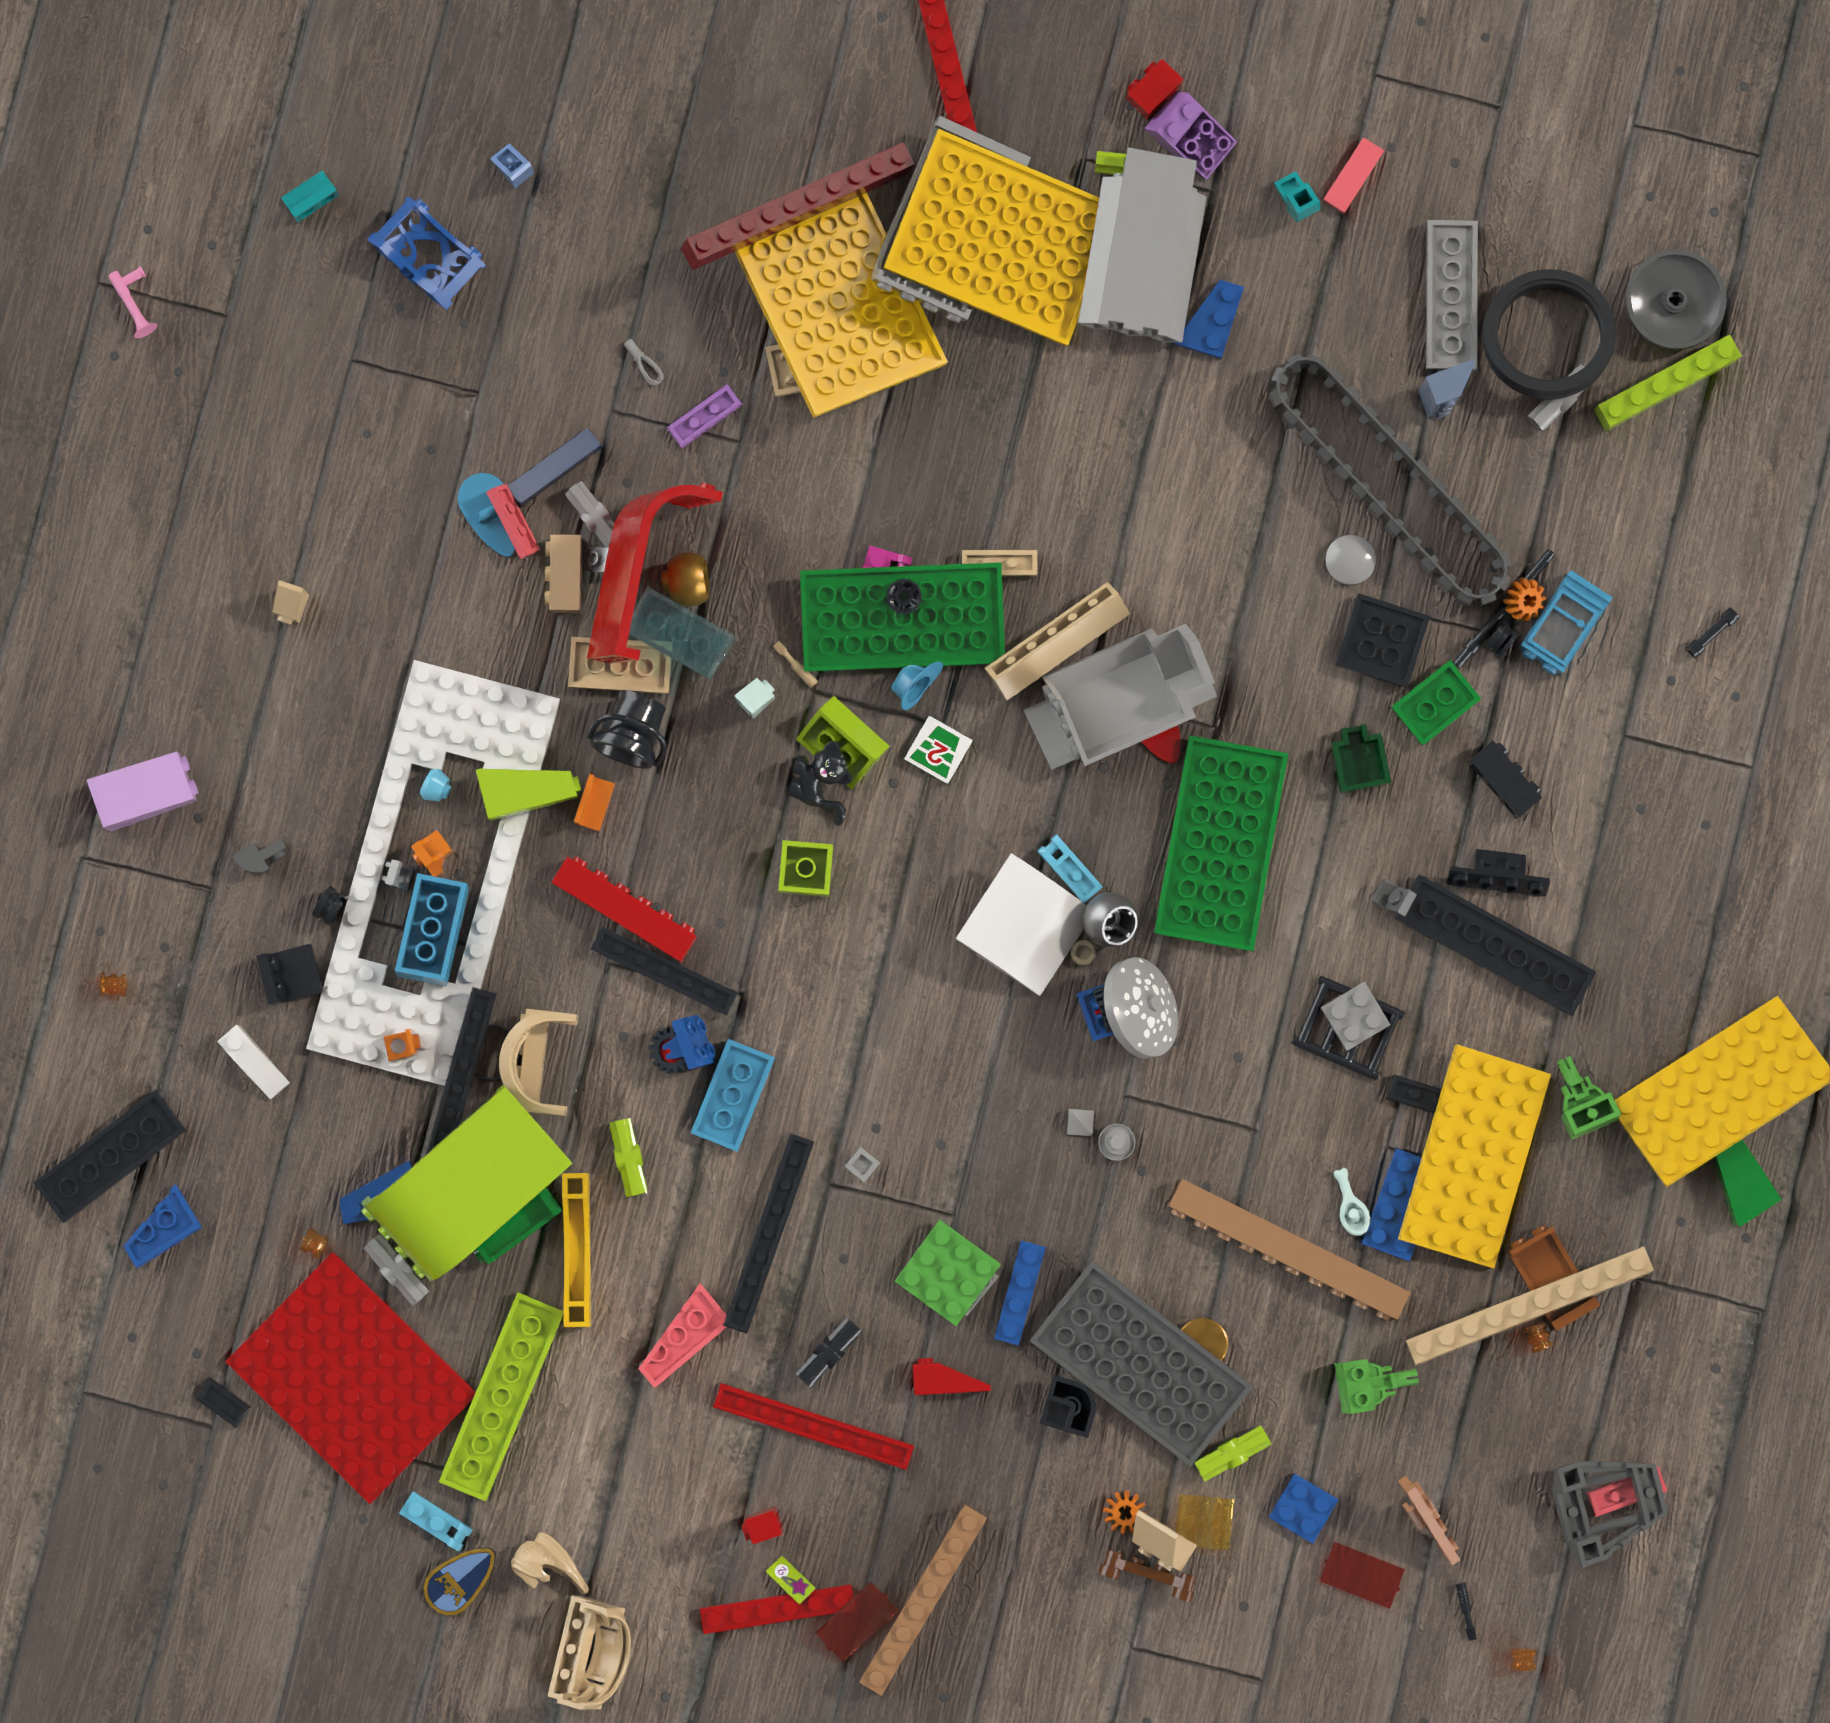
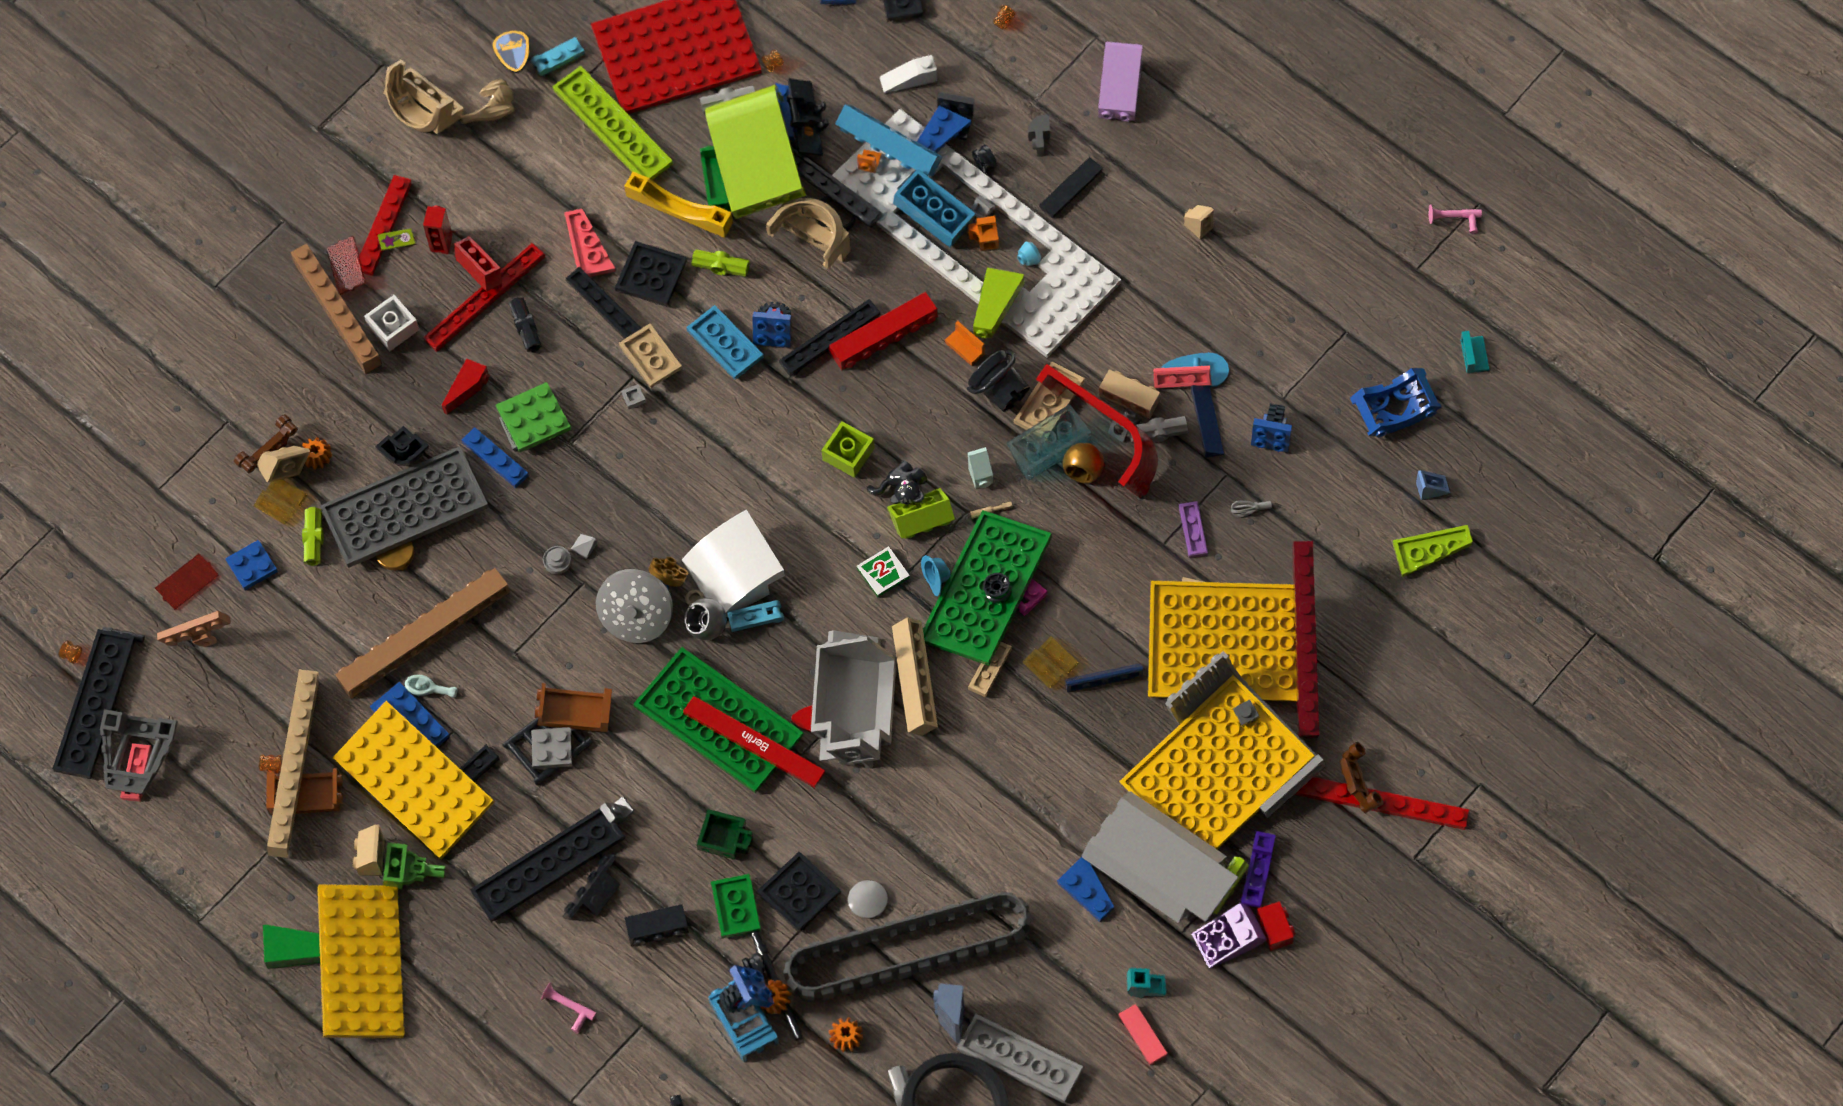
camera: 125 degrees right, 20 degrees down
(314, 783) = (1071, 187): none -> black tile
(319, 979) = (942, 128): none -> blue wing
(367, 1031) = (888, 140): none -> dark azure brick
(373, 1153) = (810, 122): none -> black piece
(532, 379) = (1272, 430): none -> blue plate
(601, 137) = (1424, 549): none -> lime wing
(684, 1235) = (651, 273): none -> black plate
(780, 1453) = (478, 263): none -> red brick
(800, 1172) = (650, 355): none -> tan plate
(910, 1516) = (391, 322): none -> white brick
(925, 229) = (1246, 713): none -> dark grey plate
(935, 79) = (1355, 780): none -> reddish brown plate
(943, 428) = (1104, 677): none -> dark blue slope
(956, 498) = (1050, 662): none -> clear yellow slope
(1070, 998) = (668, 571): none -> pearl gold tile
(1101, 138) = (1258, 869): none -> dark purple slope
(1232, 784) = (754, 742): none -> red tile
(1294, 1016) = (573, 709): none -> dark orange panel
(1364, 1385) = (305, 639): bright green brick -> none
(1532, 495) = (844, 1027): none -> orange gear
(1545, 623) = (745, 991): none -> blue plate
(1571, 1592) = (95, 694): none -> black plate
(1588, 1156) = (369, 851): none -> tan slope
(1645, 808) = (584, 1012): none -> bright pink piece

